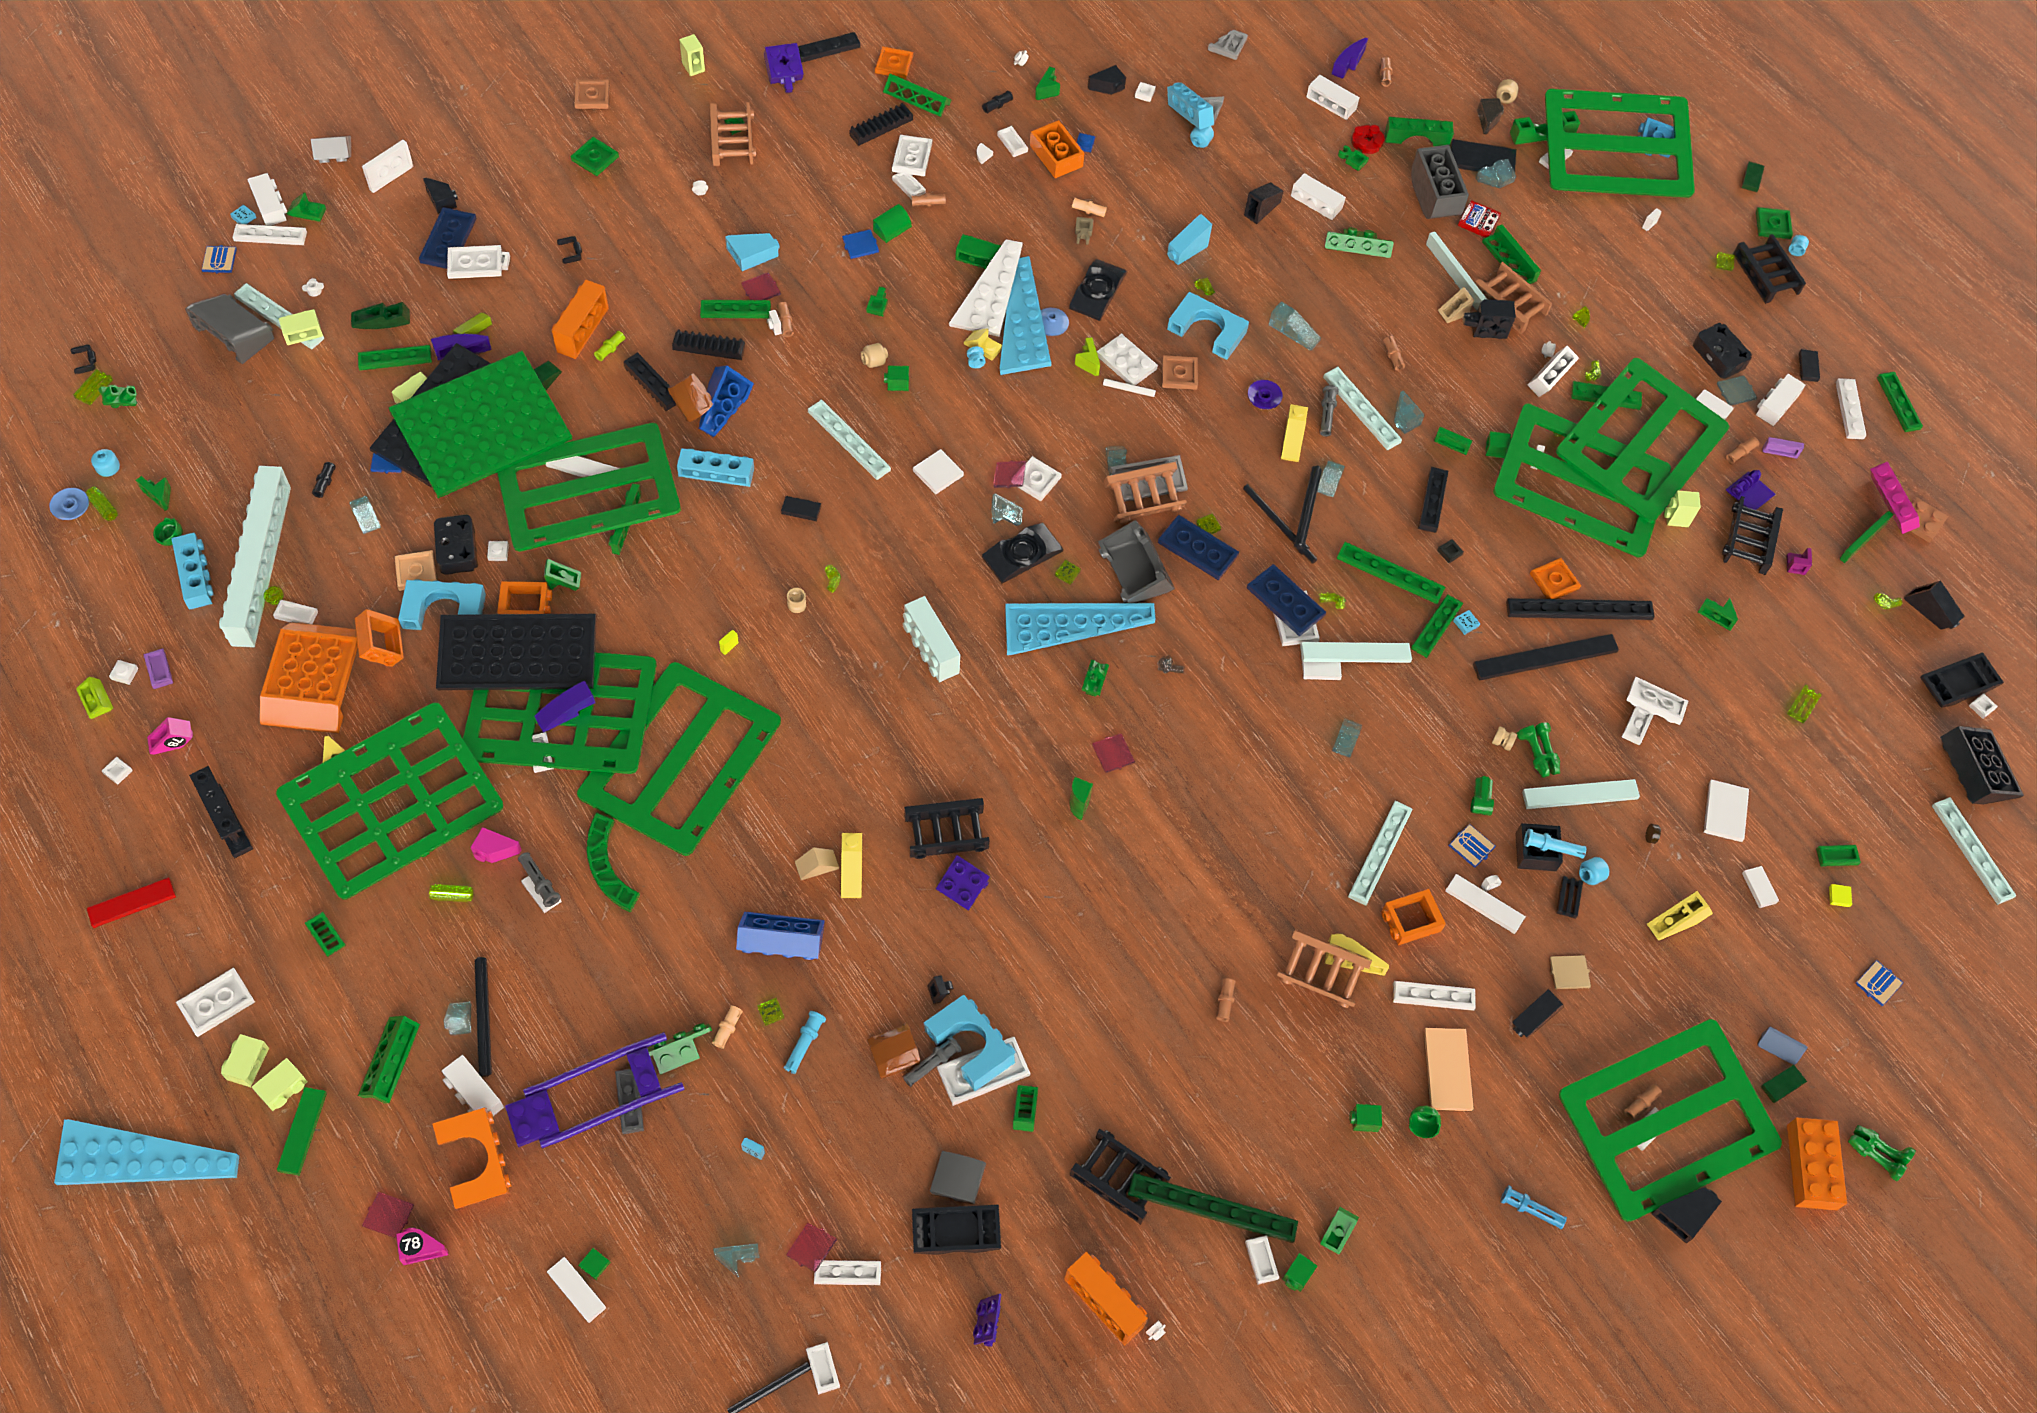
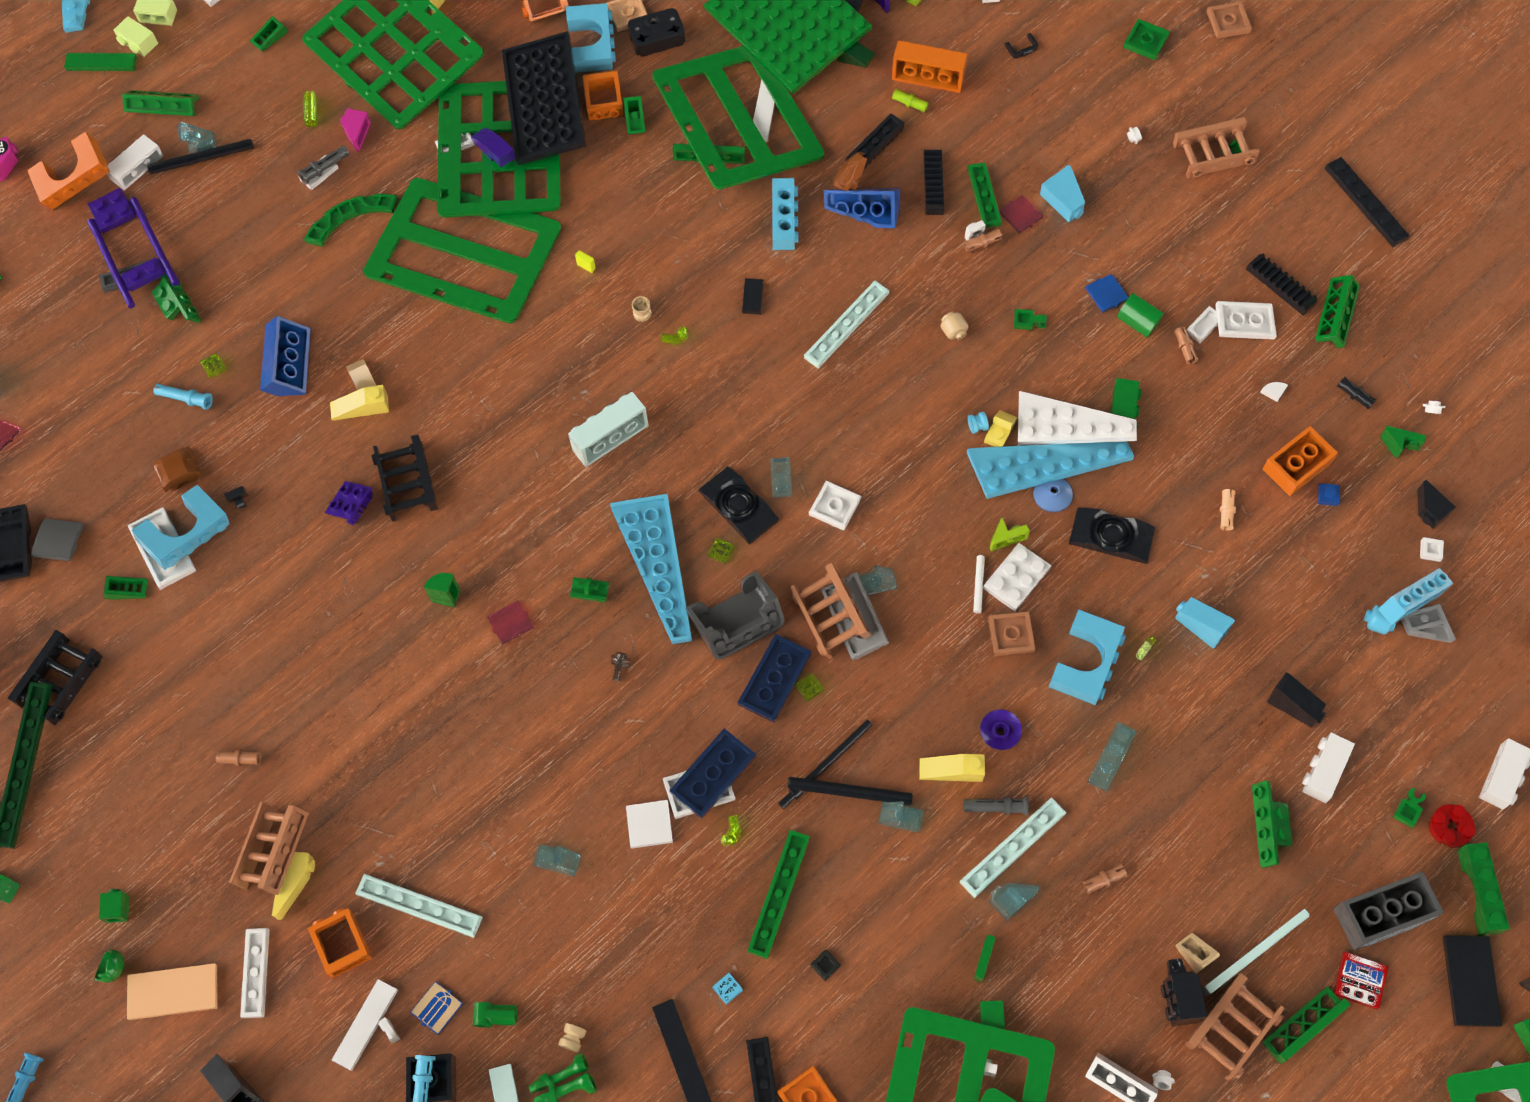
camera: 90 degrees right, 5 degrees up
(388, 1215) = (33, 133): clear pink piece -> none
(498, 551) = (657, 63): white plate -> none
(692, 55) = (1308, 89): yellowish green brick -> none
(727, 1027) = (195, 333): light nougat pin -> none
(753, 1148) = (82, 372): medium azure tile -> none
(783, 65) = (1317, 174): dark purple hinge -> none
(894, 62) = (1380, 282): orange tile -> none
(897, 378) = (931, 353): green brick -> none
(938, 471) = (823, 410): white tile -> none
(939, 1055) = (172, 507): dark grey pin -> none
(1009, 474) = (832, 477): clear pink piece -> none
(1012, 141) = (1303, 418): white tile -> none
(1083, 229) = (1194, 507): dark tan plate -> none
(1355, 652) = (662, 860): light aqua tile -> none
(1433, 500) = (892, 939): black gear -> none
(1437, 626) = (718, 954): green tile -> none
(1497, 175) = (1440, 999): clear light blue slope -> none

